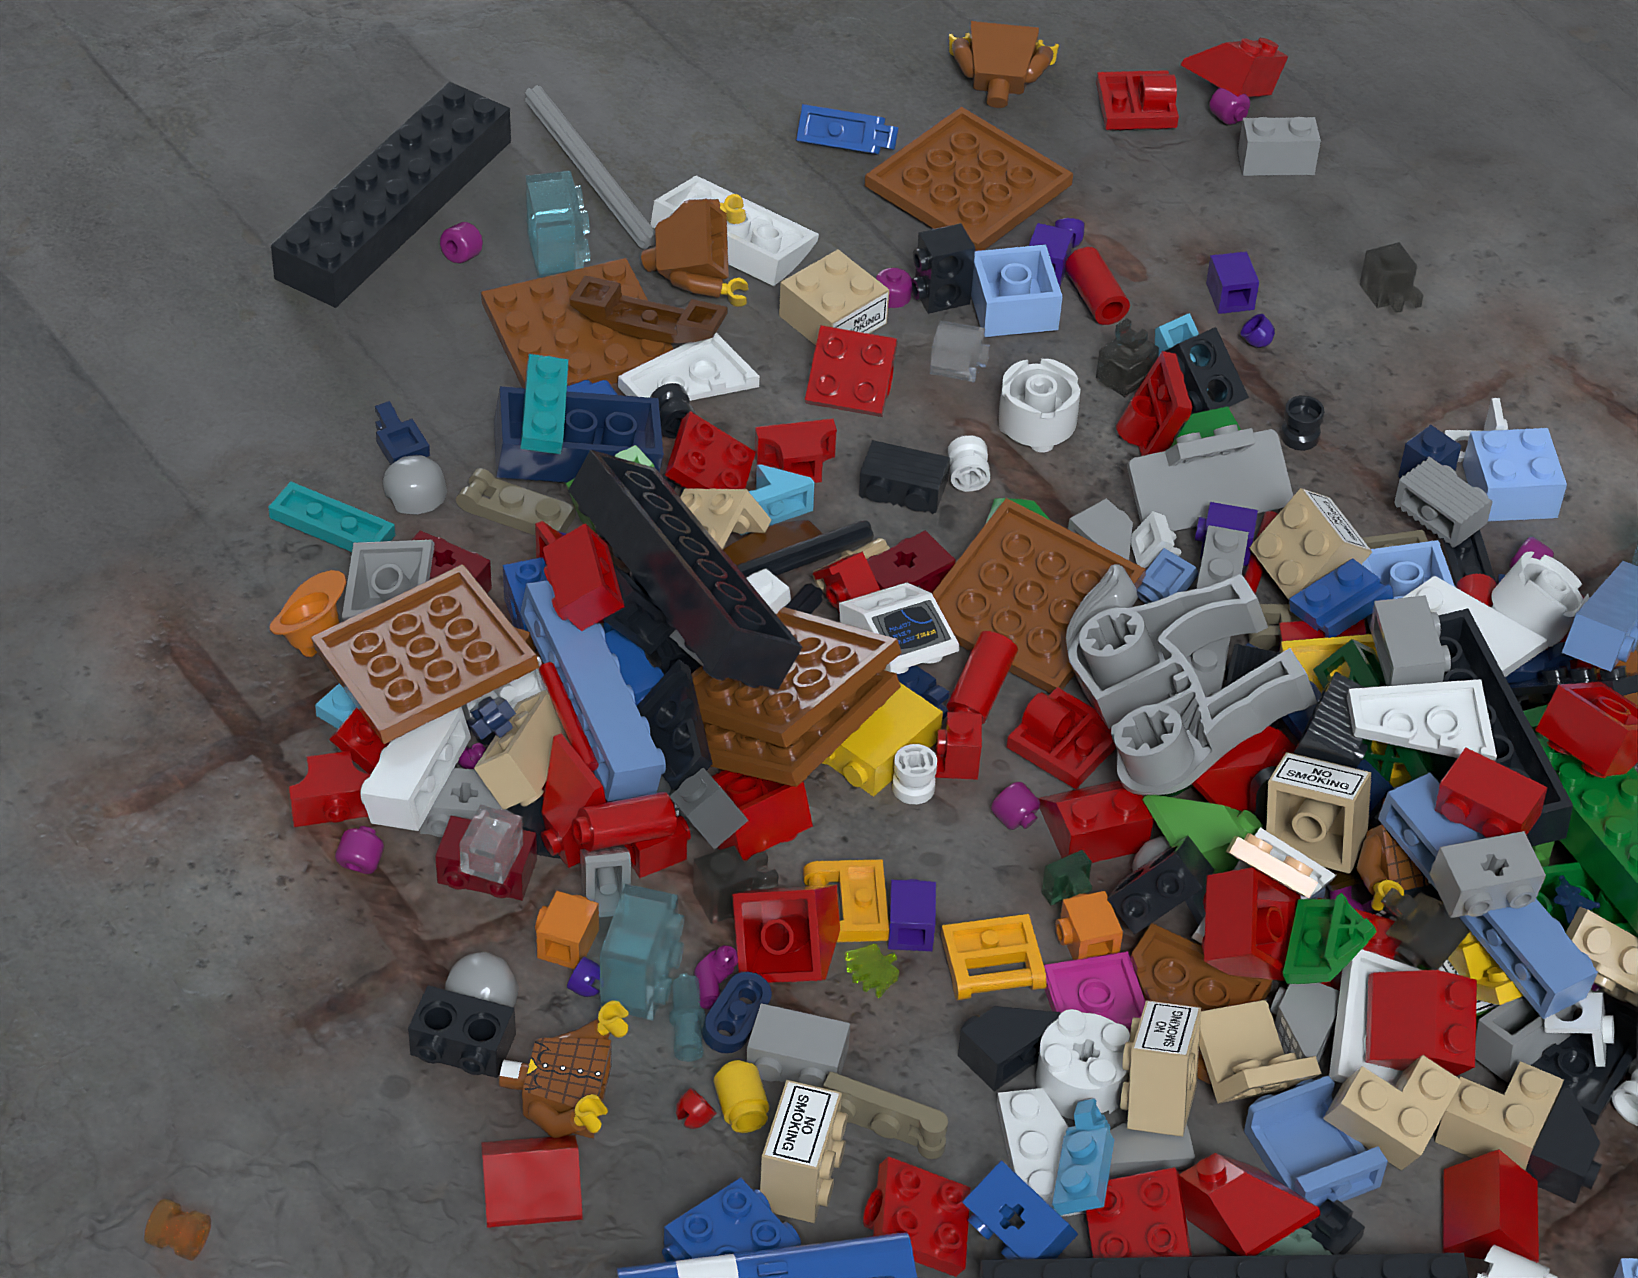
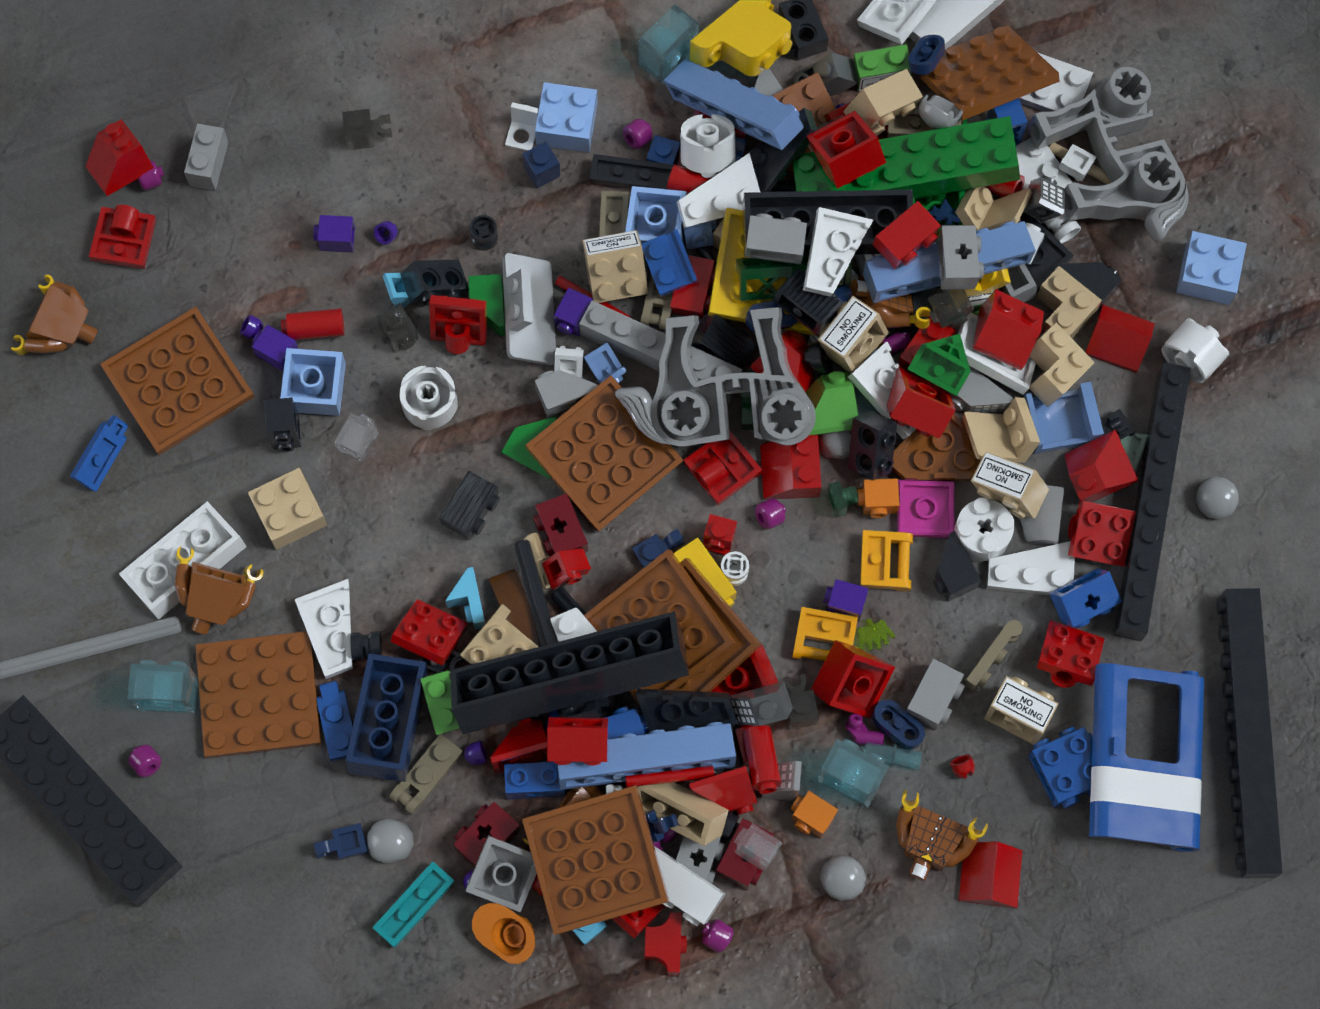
camera: 75 degrees left, 25 degrees up
(463, 1026) = (875, 893): black brick -> none
(544, 404) = (371, 732): teal plate -> none
(584, 977) = (850, 811): dark purple hinge -> none
(645, 319) = (277, 641): reddish brown slope -> none
(741, 1096) = (962, 736): yellow brick -> none
(797, 446) = (426, 570): red brick -> none
(851, 371) = (362, 514): red plate -> none
(899, 286) = (274, 463): magenta piece -> none
(908, 616) = (621, 546): slope -> none
(969, 463) = (467, 460): white wheel -> none
(983, 675) = (670, 505): red brick -> none
(1084, 1161) = (1060, 550): dark azure hinge -> none
(1289, 872) = (896, 377): light nougat plate -> none
(1443, 501) = (591, 169): light grey brick -> none

